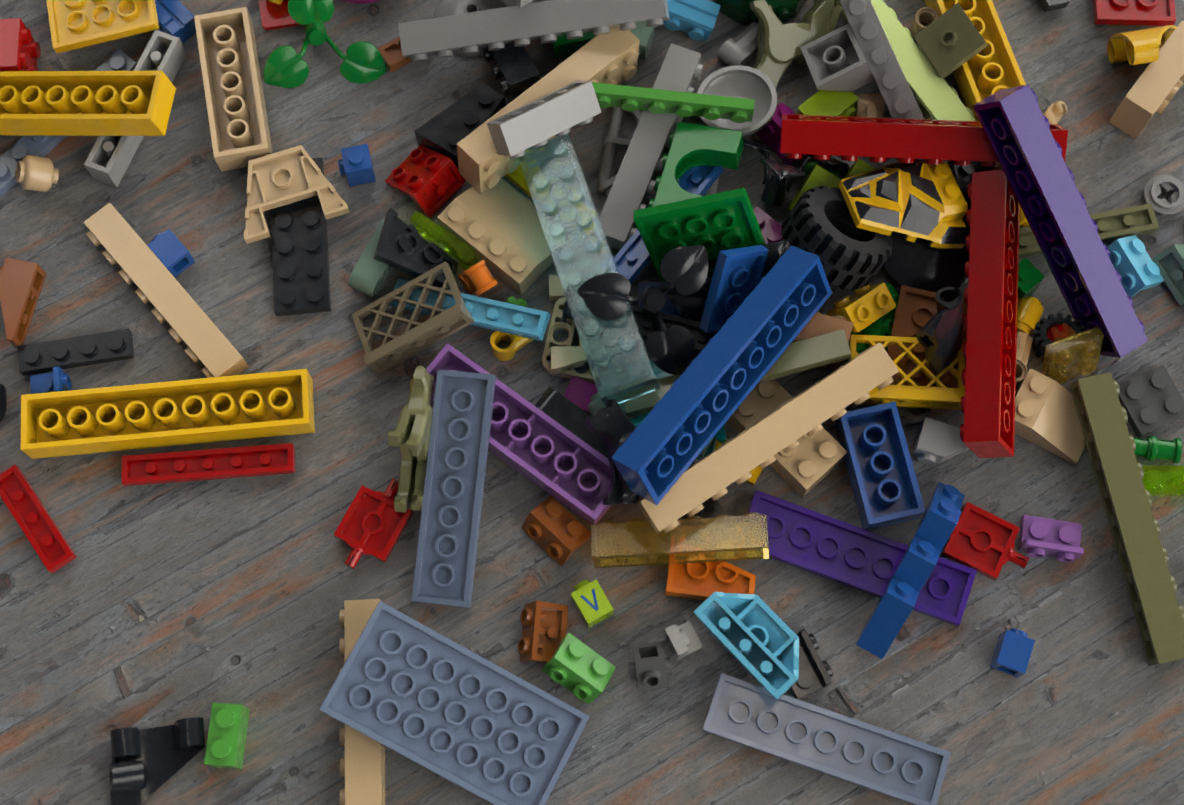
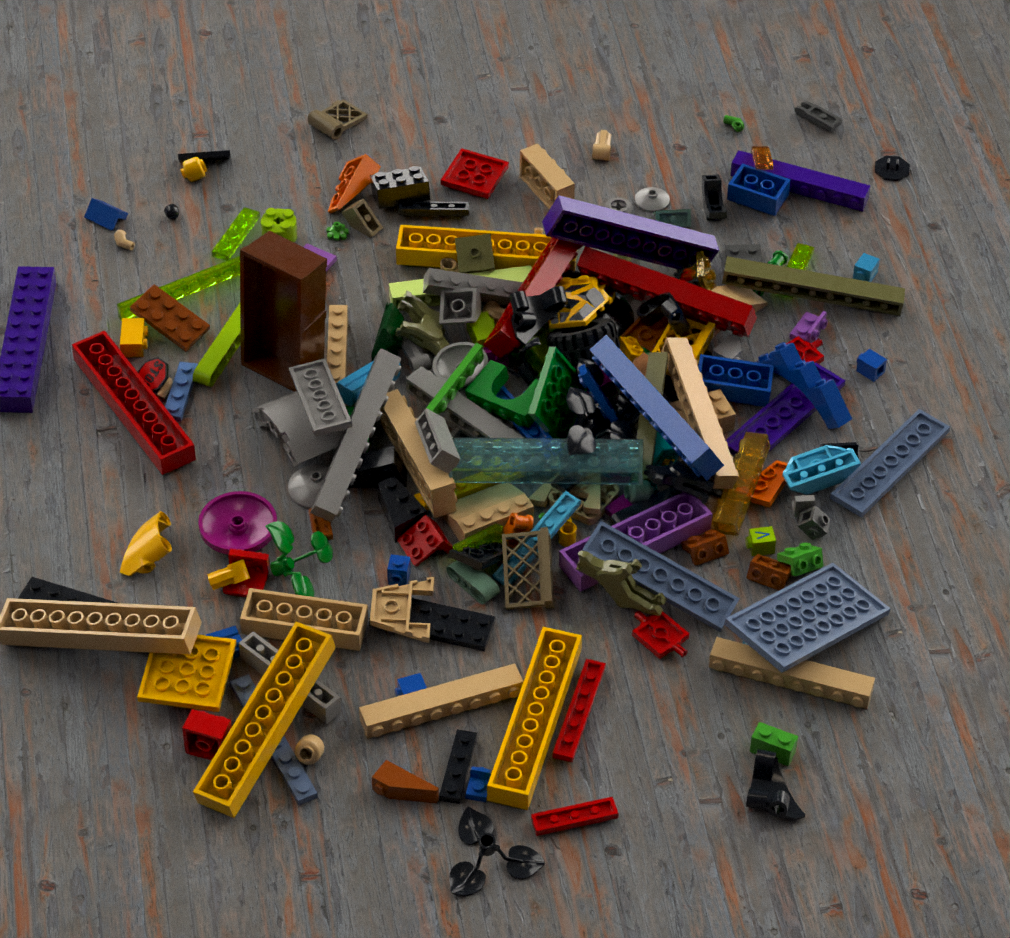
camera: 70 degrees left, 25 degrees down
(837, 147) = (533, 312): none -> black panel
(1138, 45) = (523, 170): yellow panel -> none

